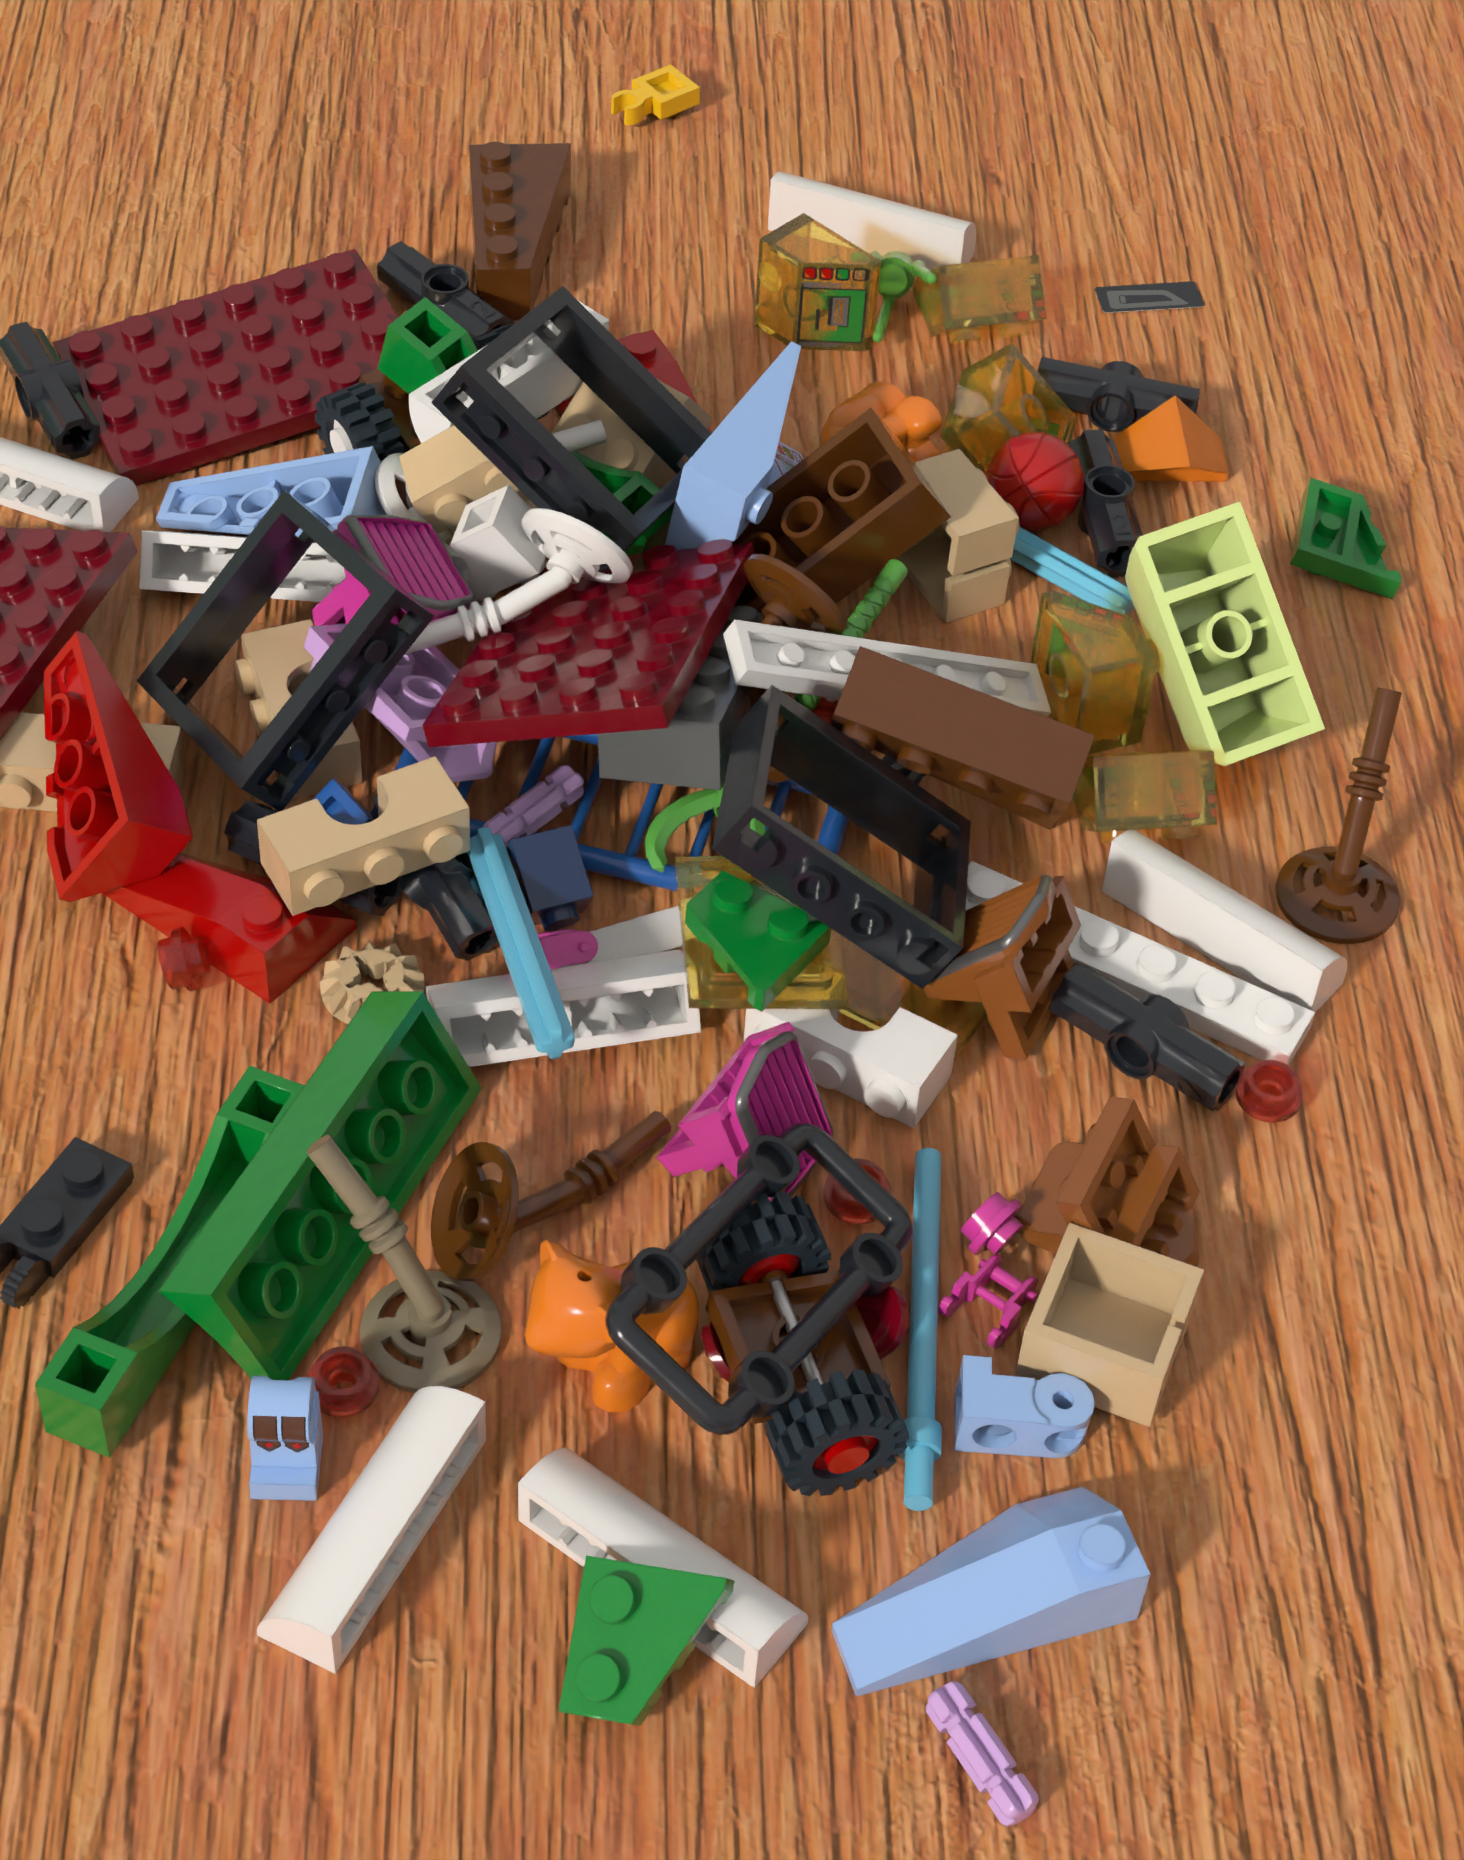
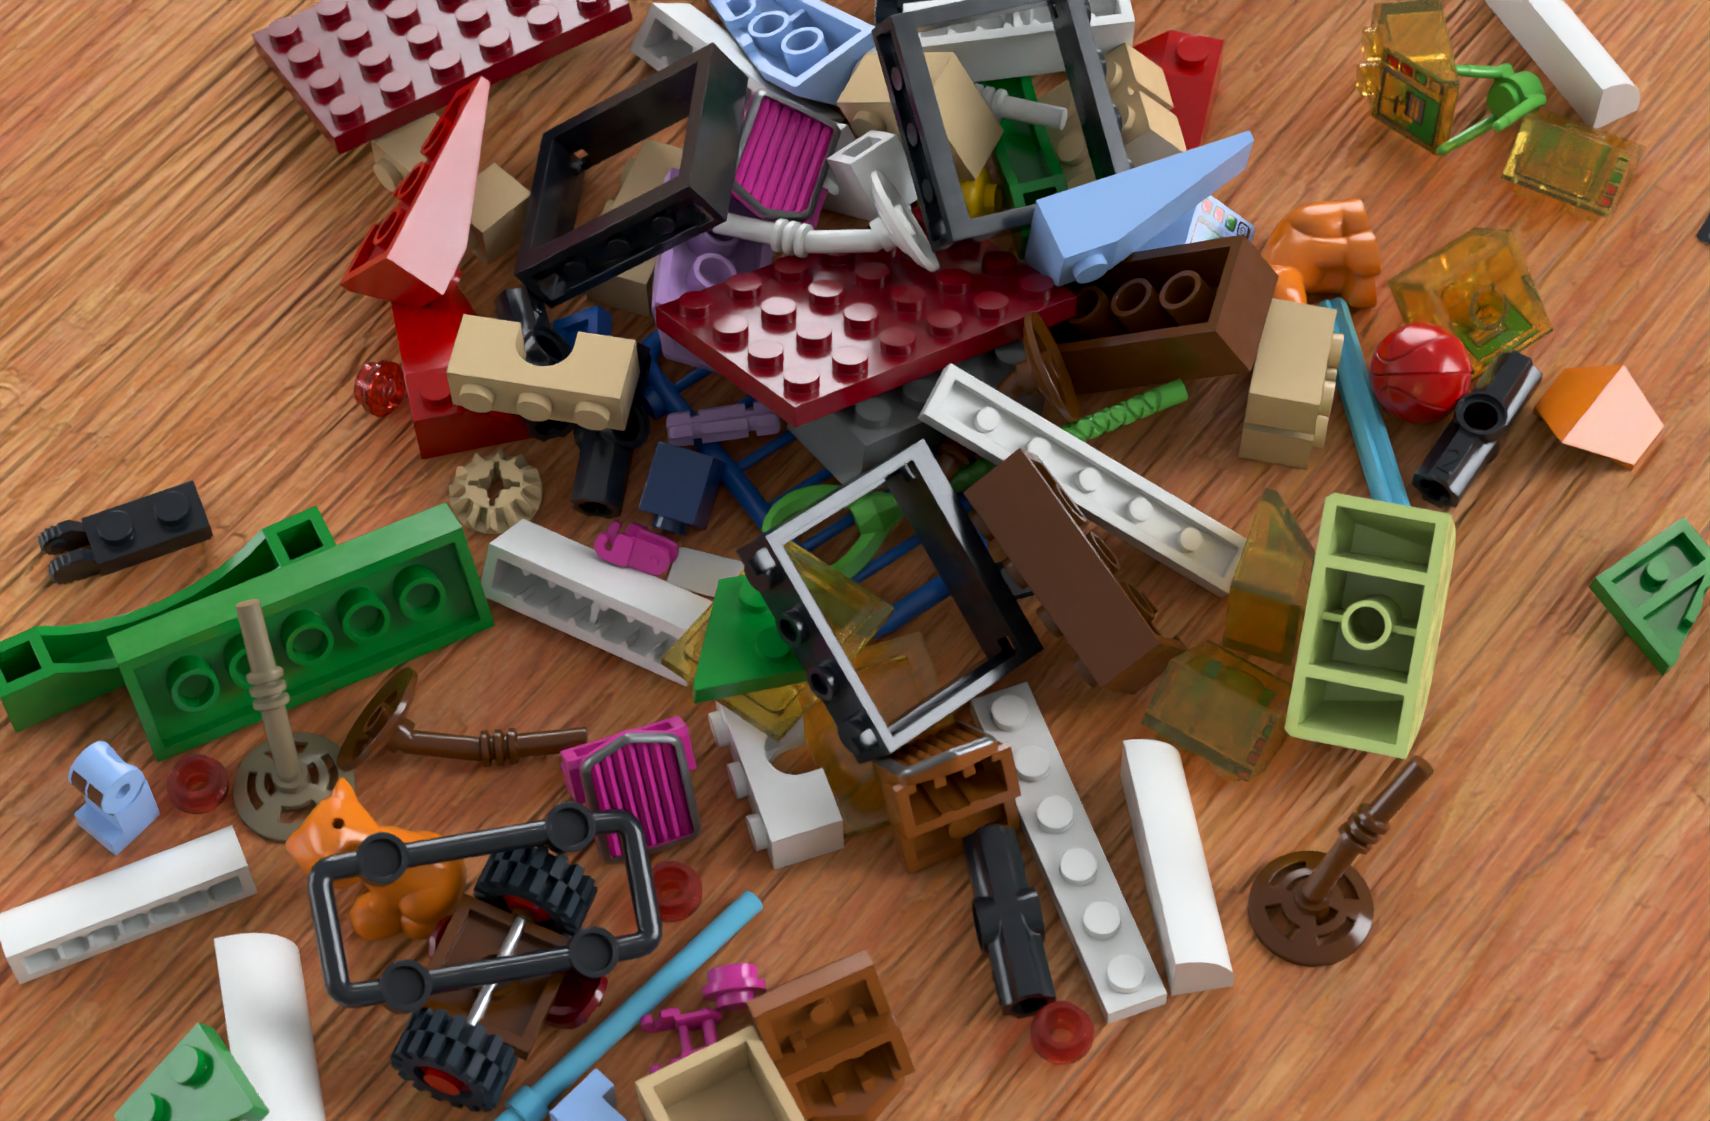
camera: 45 degrees right, 10 degrees up
(520, 944) = (588, 530): medium azure axle -> none
(1111, 395) = (1599, 327): black piece -> none

